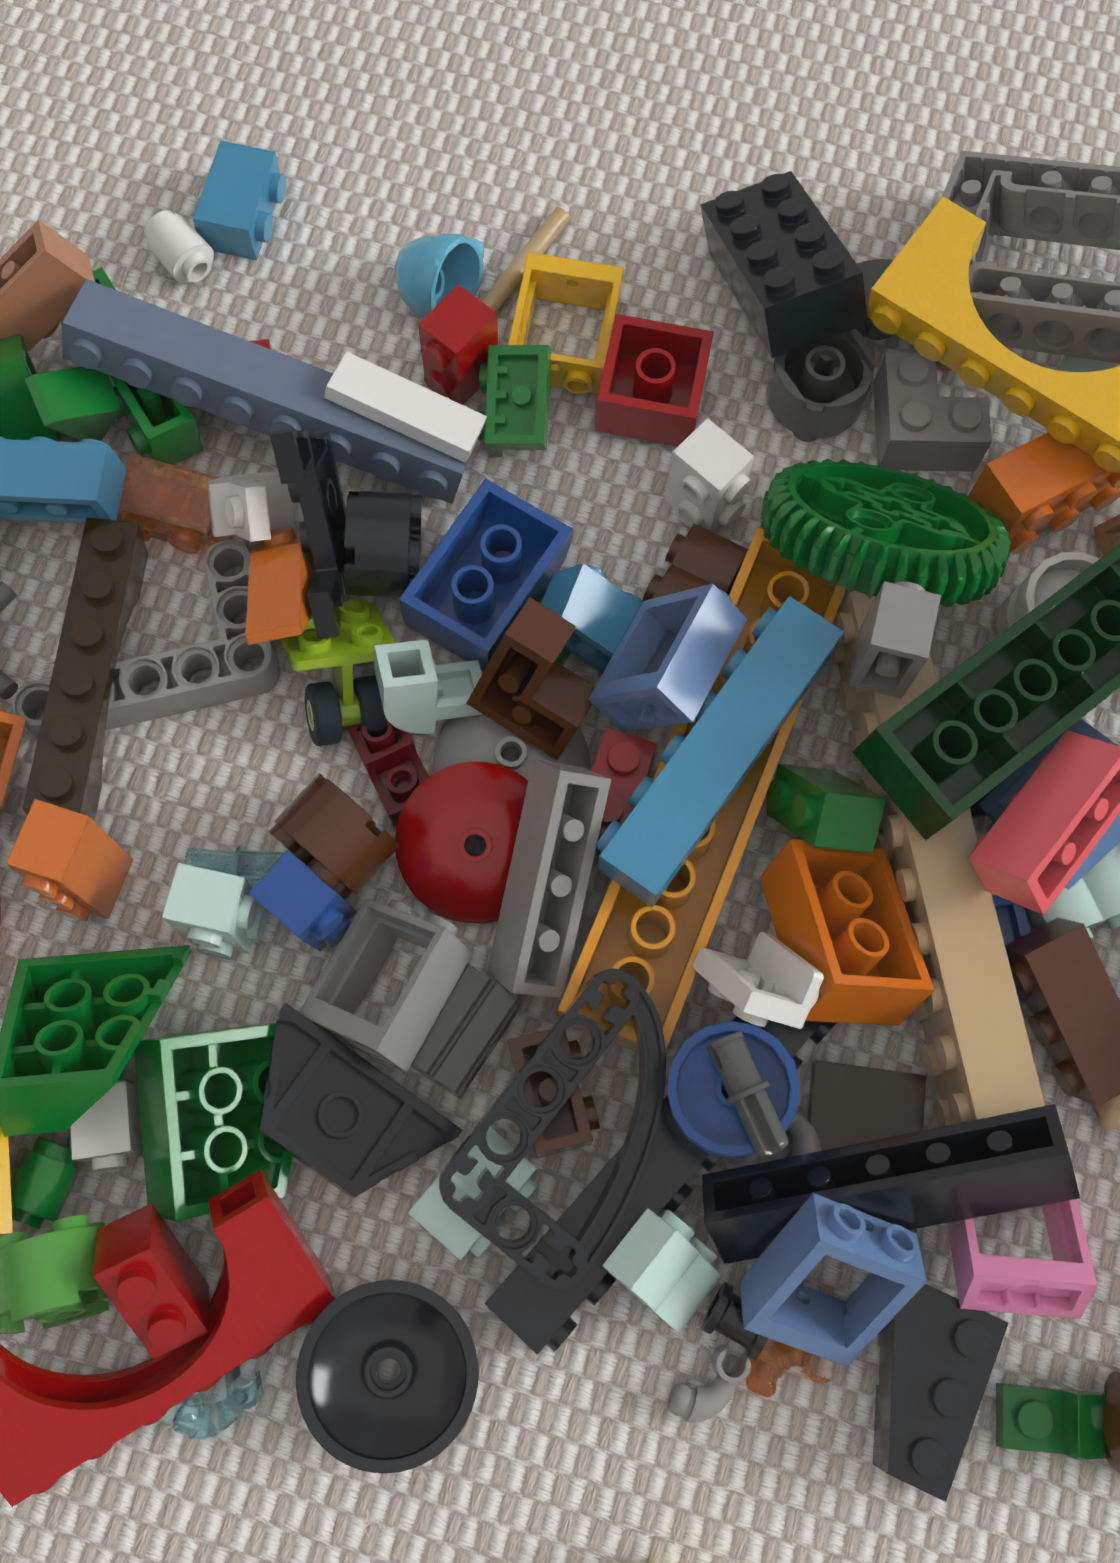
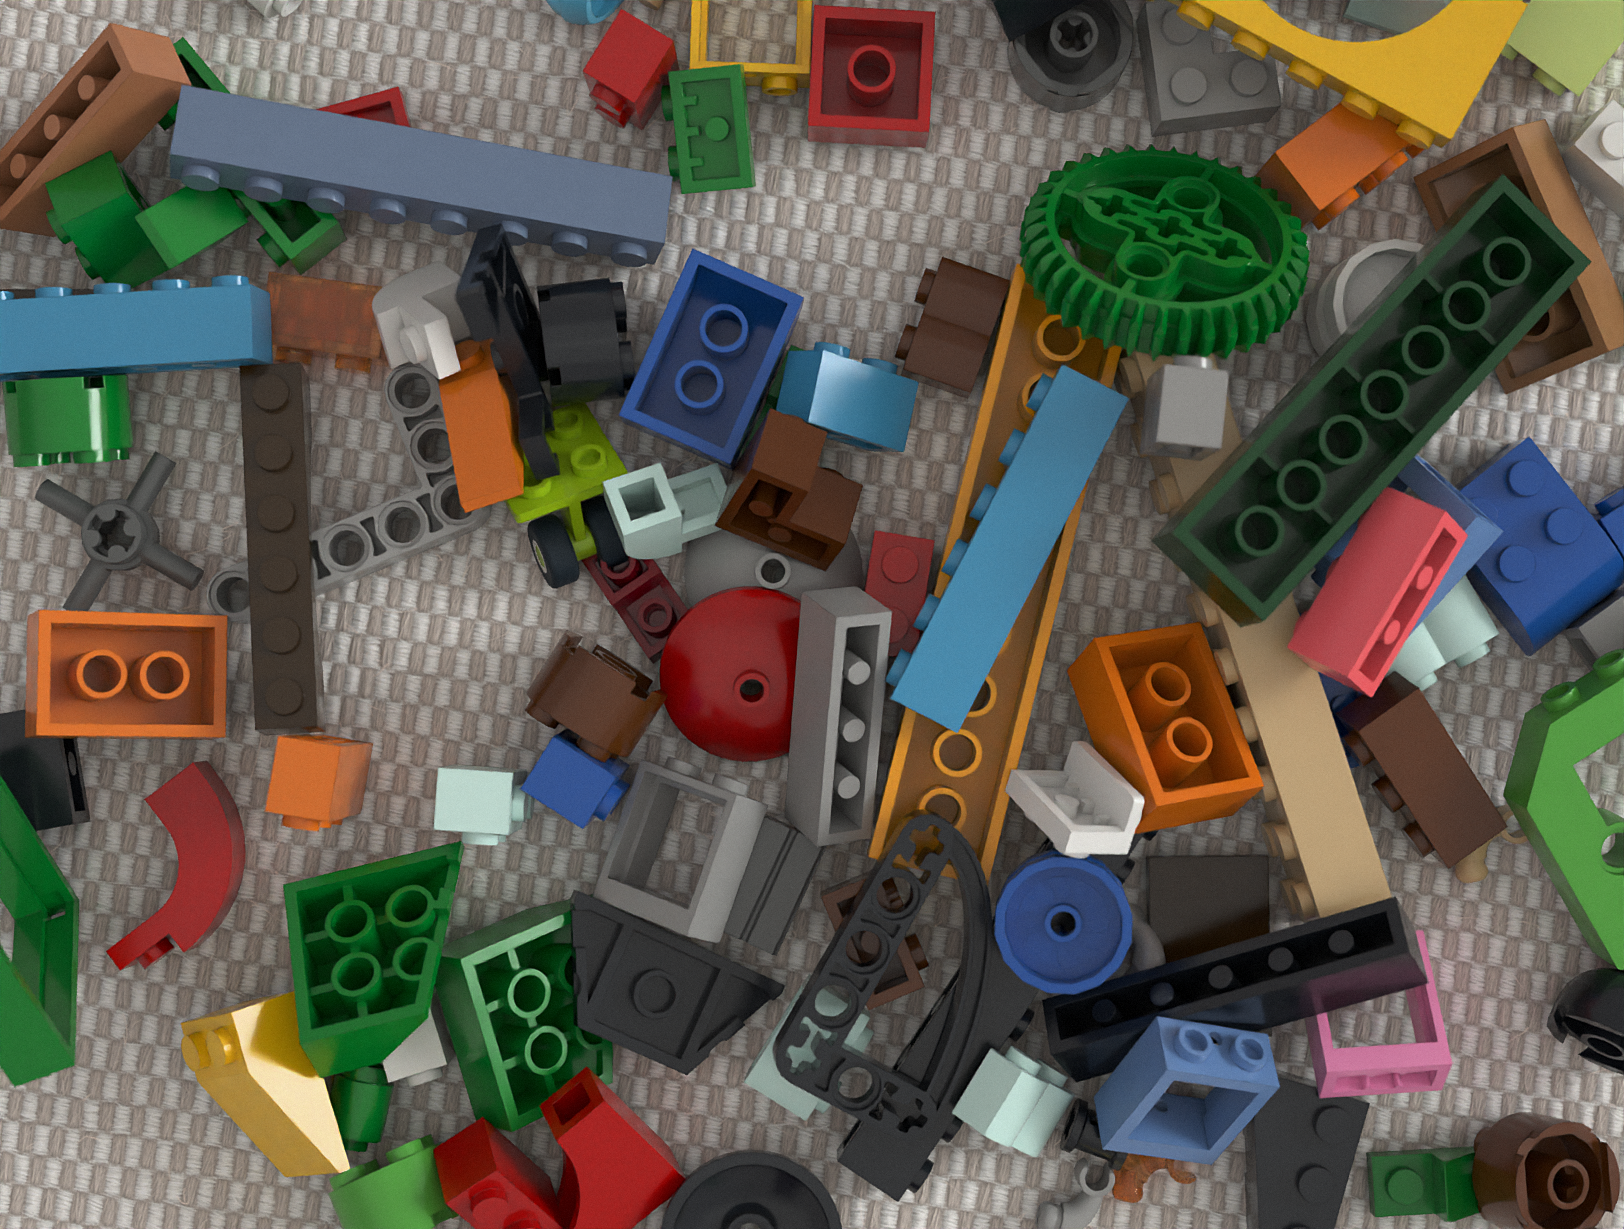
camera: 10 degrees left, 15 degrees up
(238, 862) = (491, 739): clear light blue axle -> none
(405, 406) = (584, 173): white tile -> none
(668, 659) = (963, 458): medium blue window -> none
(709, 478) = (953, 203): white brick -> none
(748, 1093) = (1079, 933): dark grey axle -> none
(825, 808) = (1129, 588): green brick -> none

